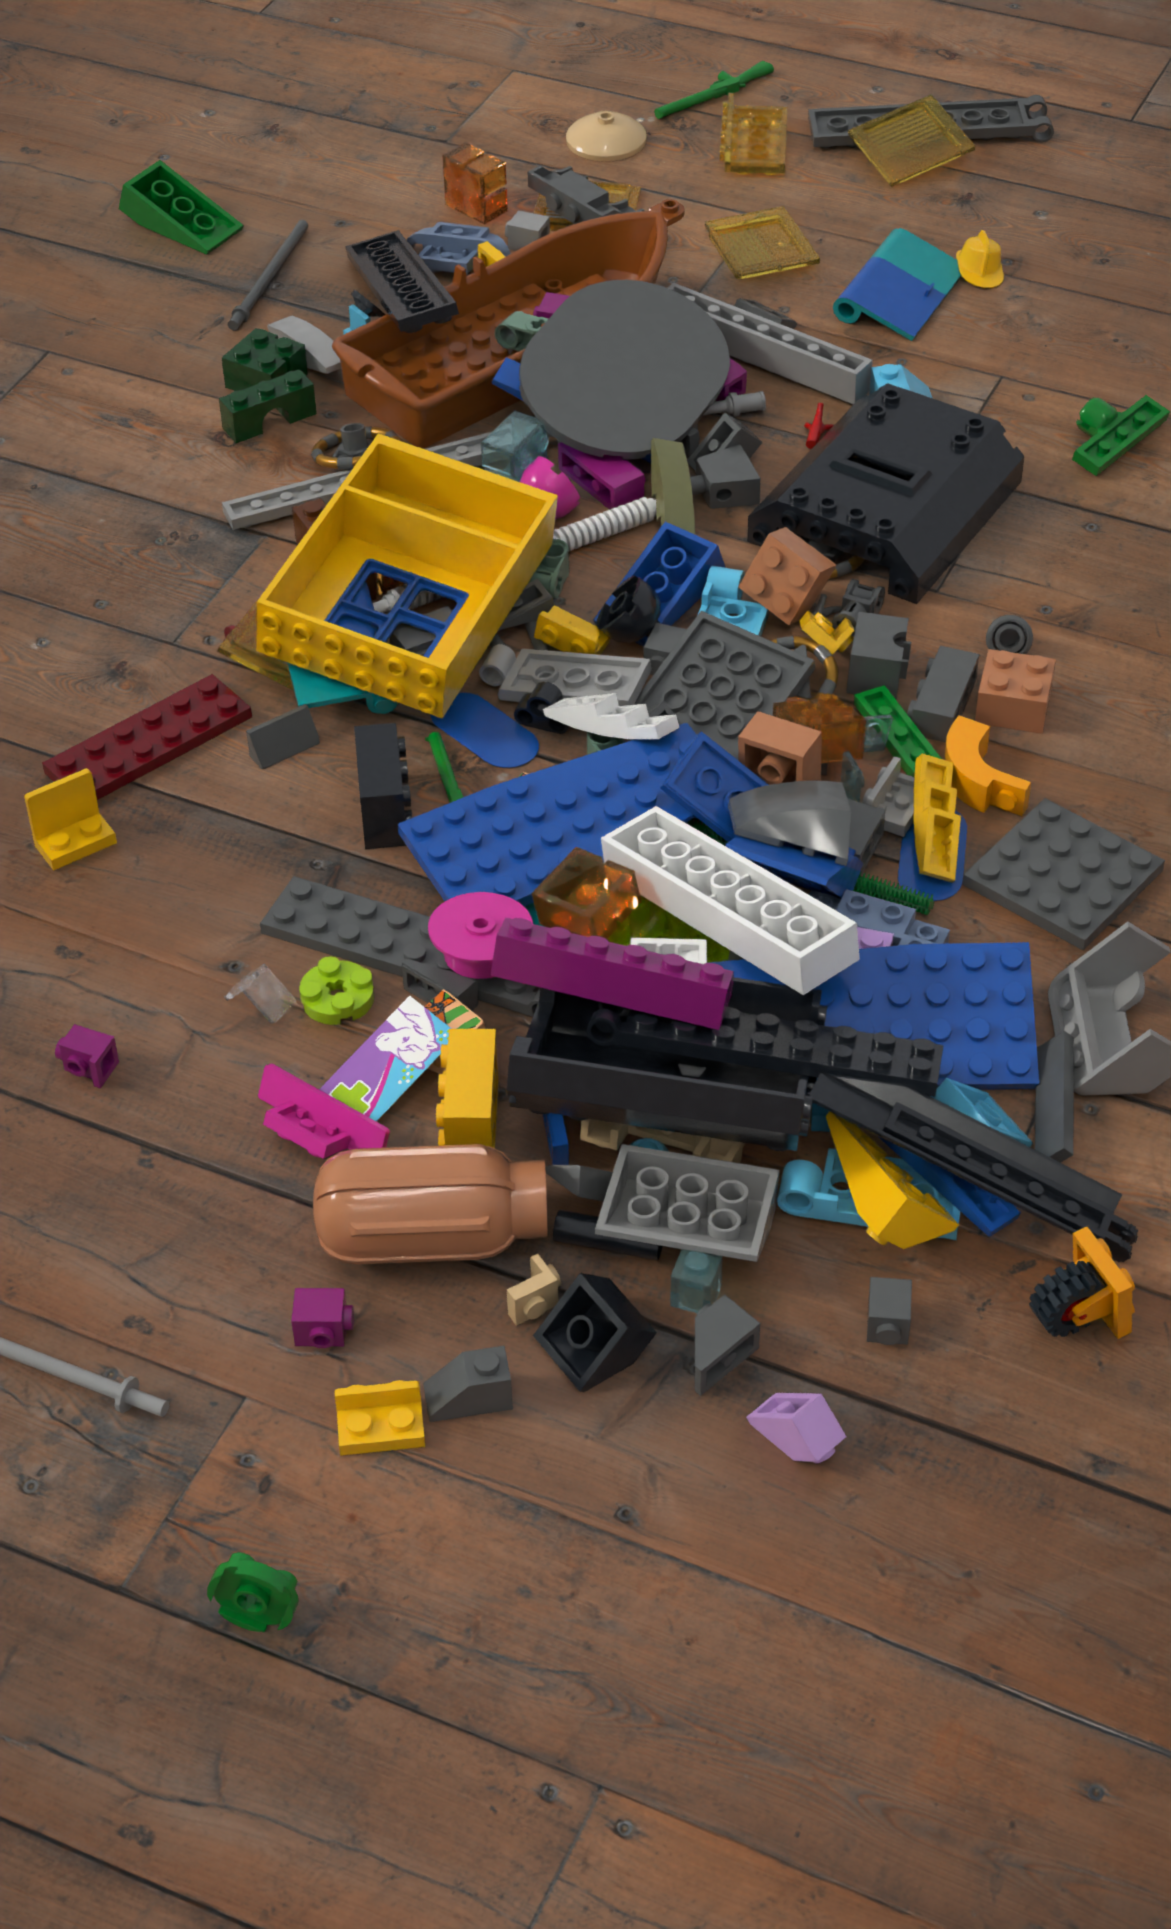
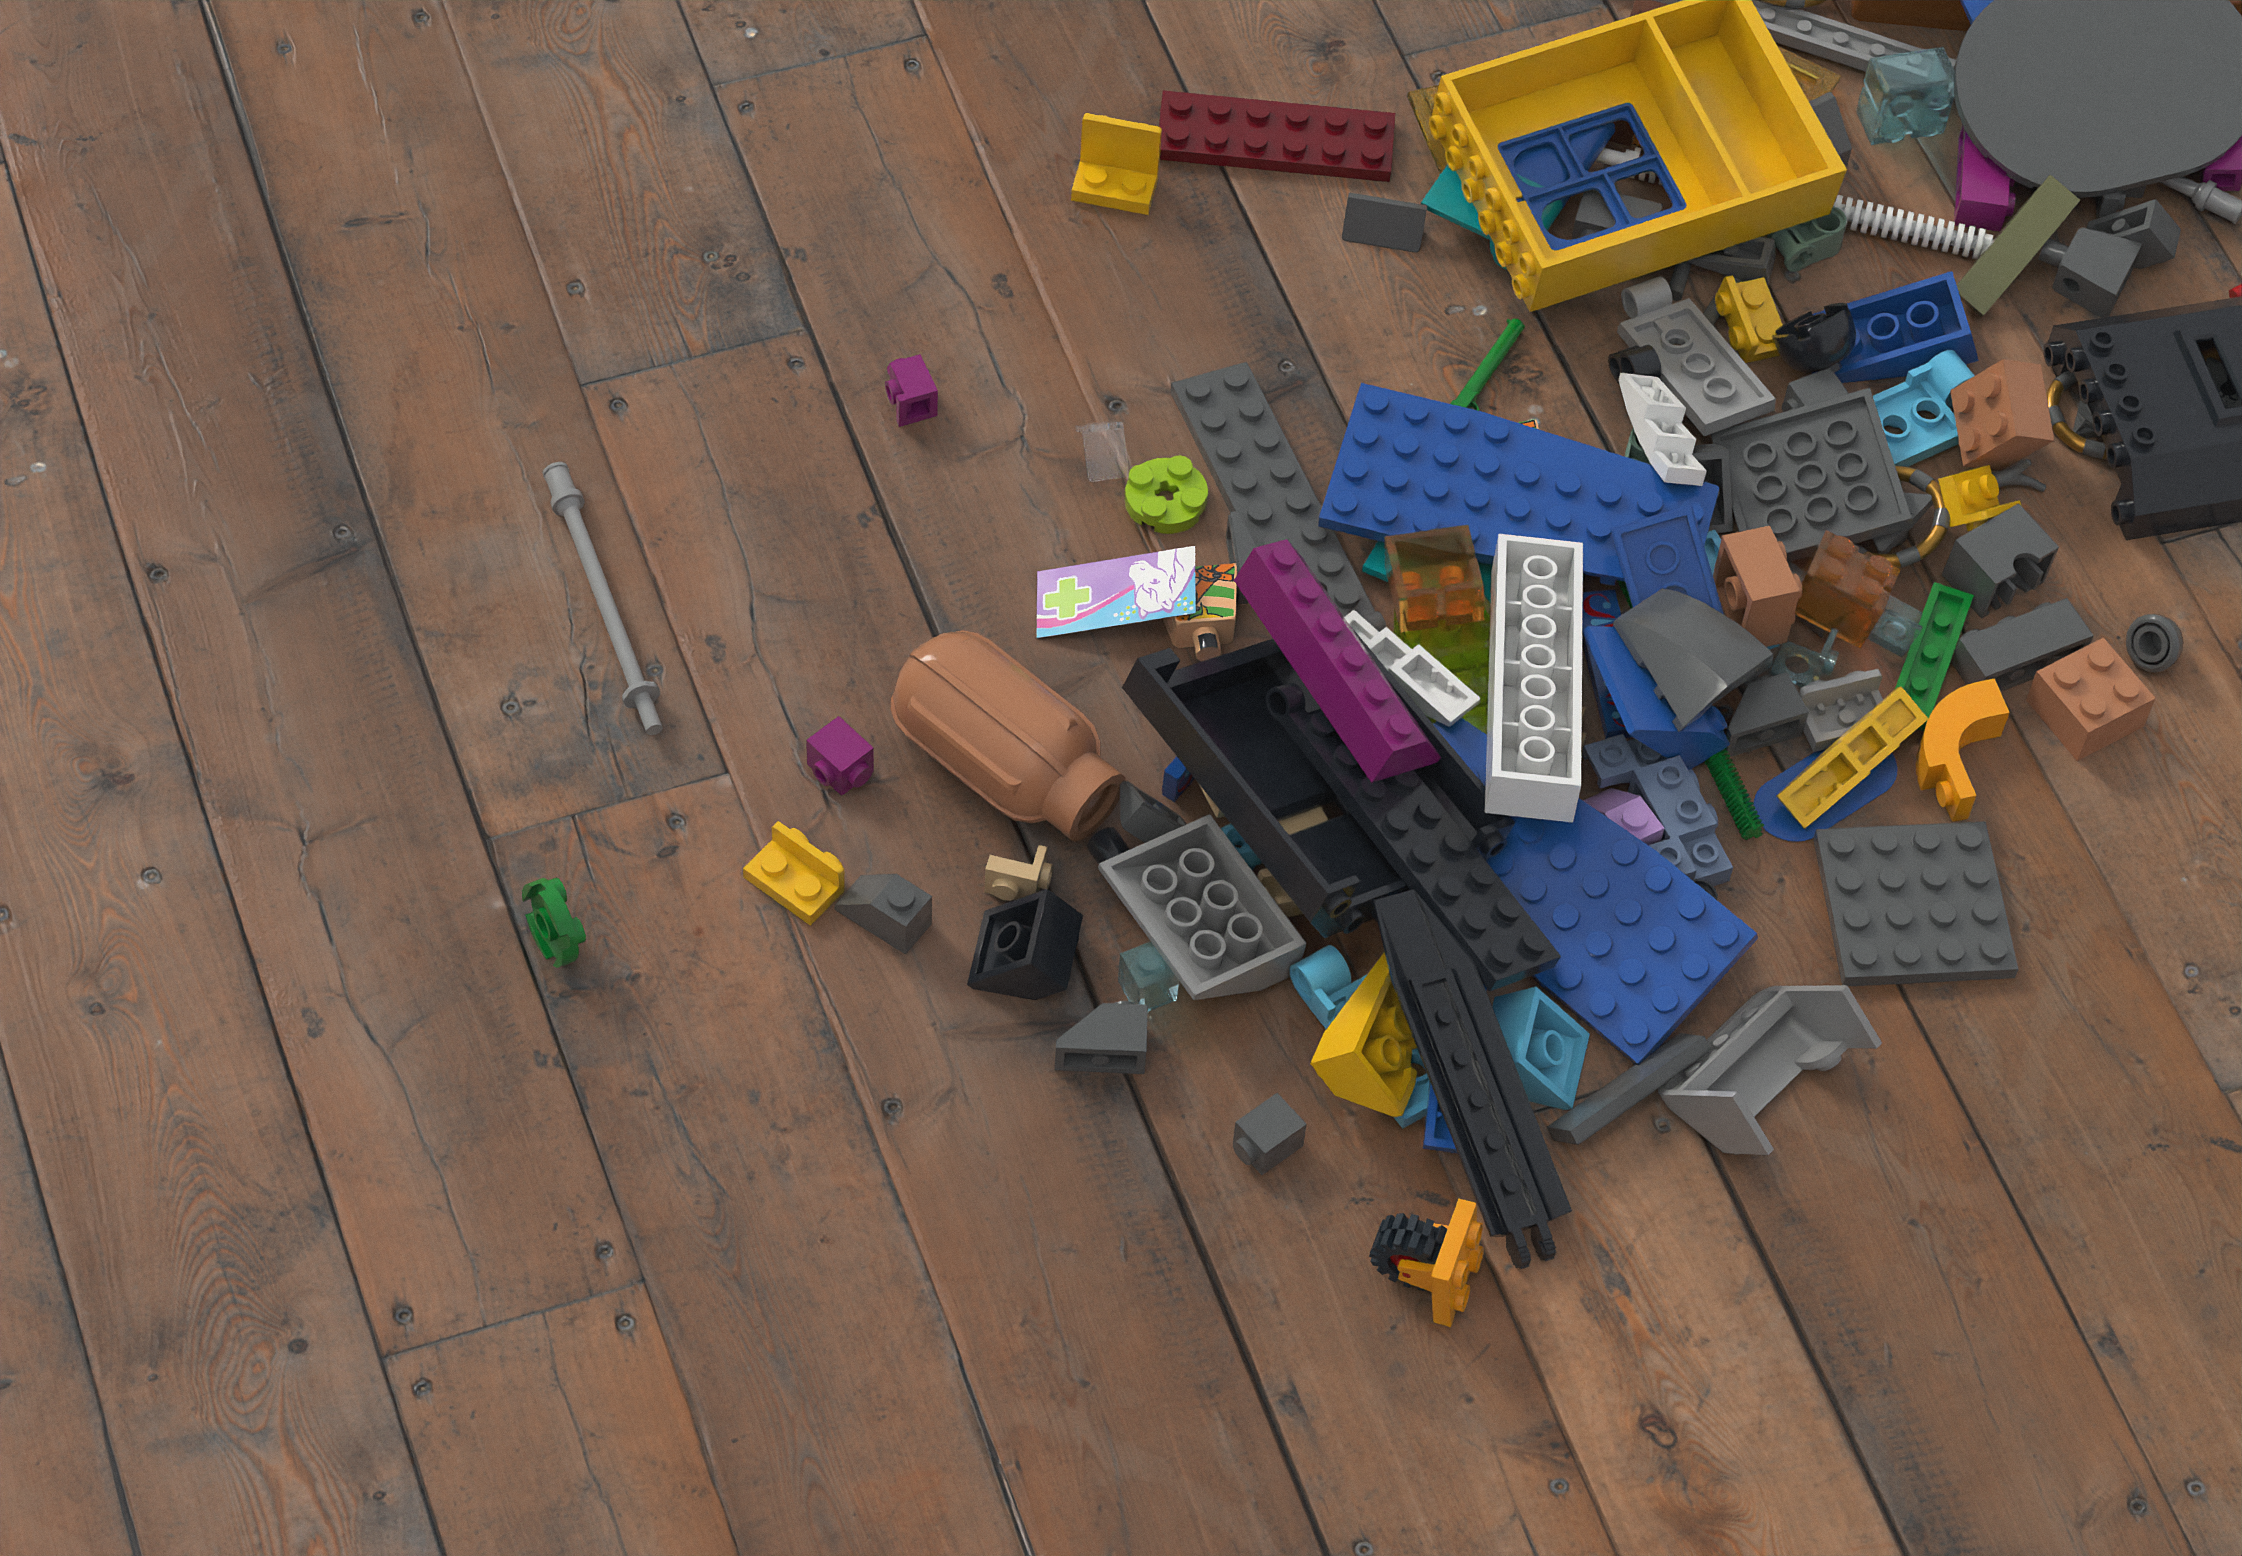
camera: 40 degrees right, 10 degrees up
(314, 1117) = (1017, 594): dark pink bracket -> none
(381, 784) = (1402, 331): black brick -> none
(468, 928) = (1319, 525): dark pink piece -> none
(468, 1088) = (1106, 702): yellow brick -> none
(488, 732) = (1573, 354): blue sticker -> none
(542, 477) = (1898, 154): dark pink cylinder -> none
(799, 1425) = (1086, 1158): lavender slope -> none
(859, 599) = (2059, 497): dark grey connector -> none

